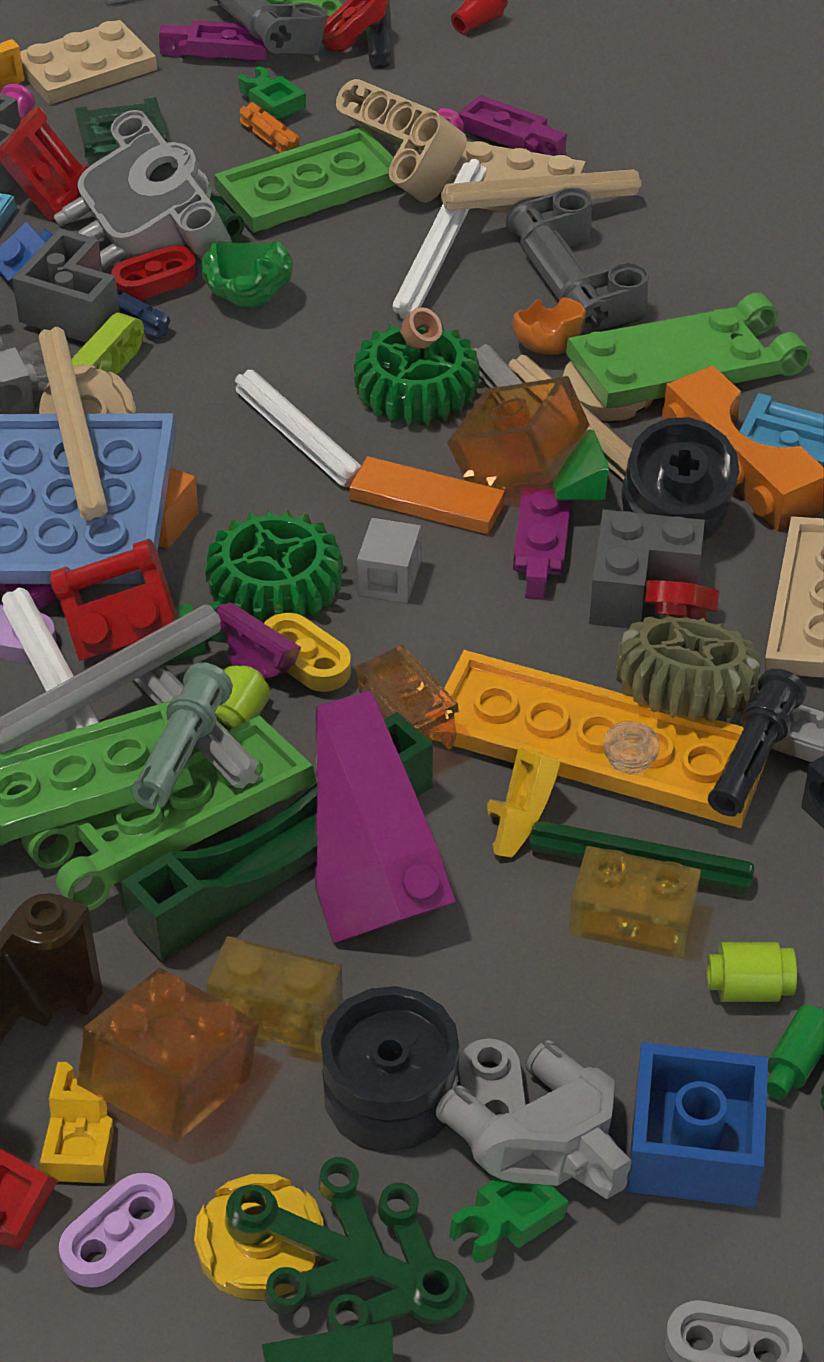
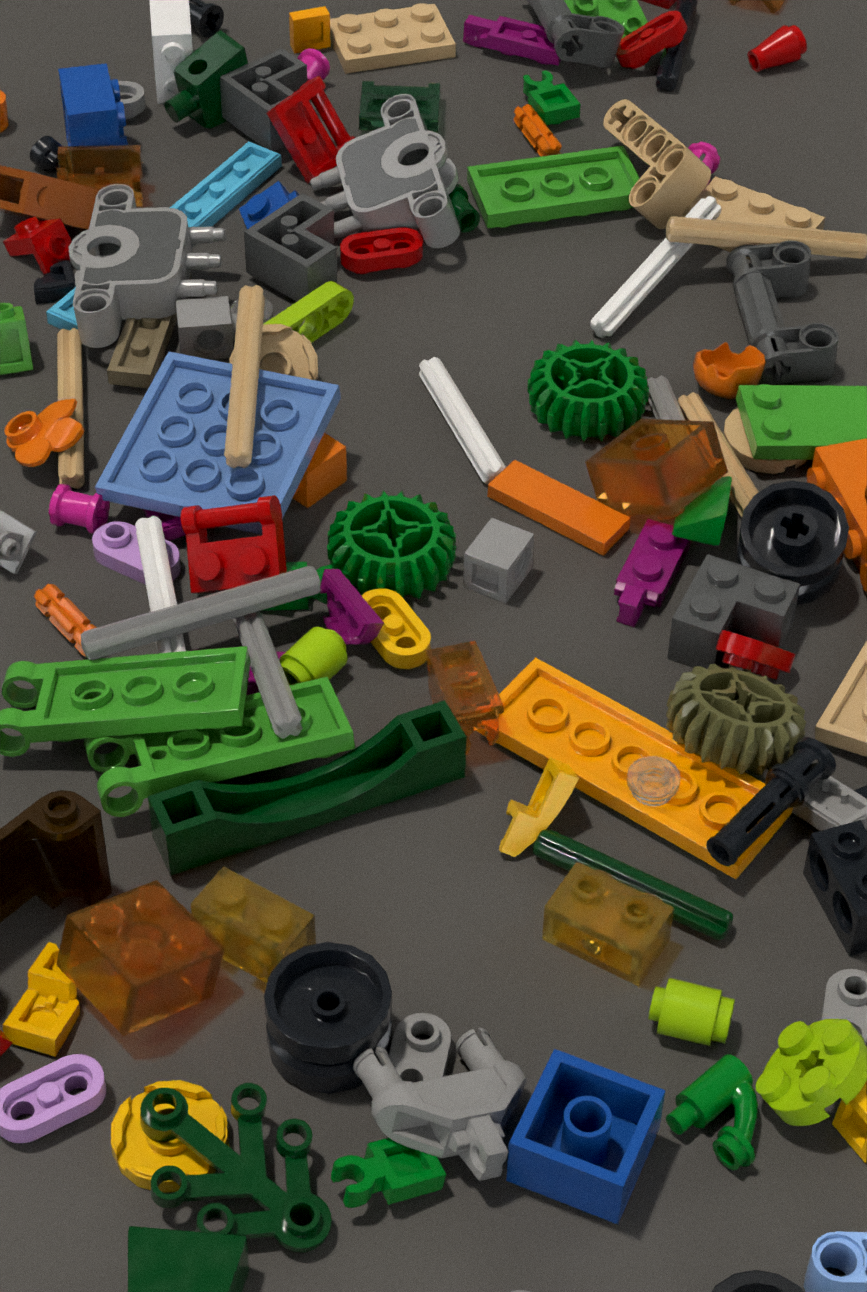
camera: 15 degrees right, 0 degrees up
(154, 322) = (364, 293): dark blue axle -> none
(189, 718) = (253, 665): sand green pin -> none
(247, 271) = (463, 264): green hair -> none
(371, 833) = (382, 808): magenta wedge -> none
(414, 321) = (595, 341): nougat hinge -> none
(512, 127) = (766, 171): magenta hinge -> none

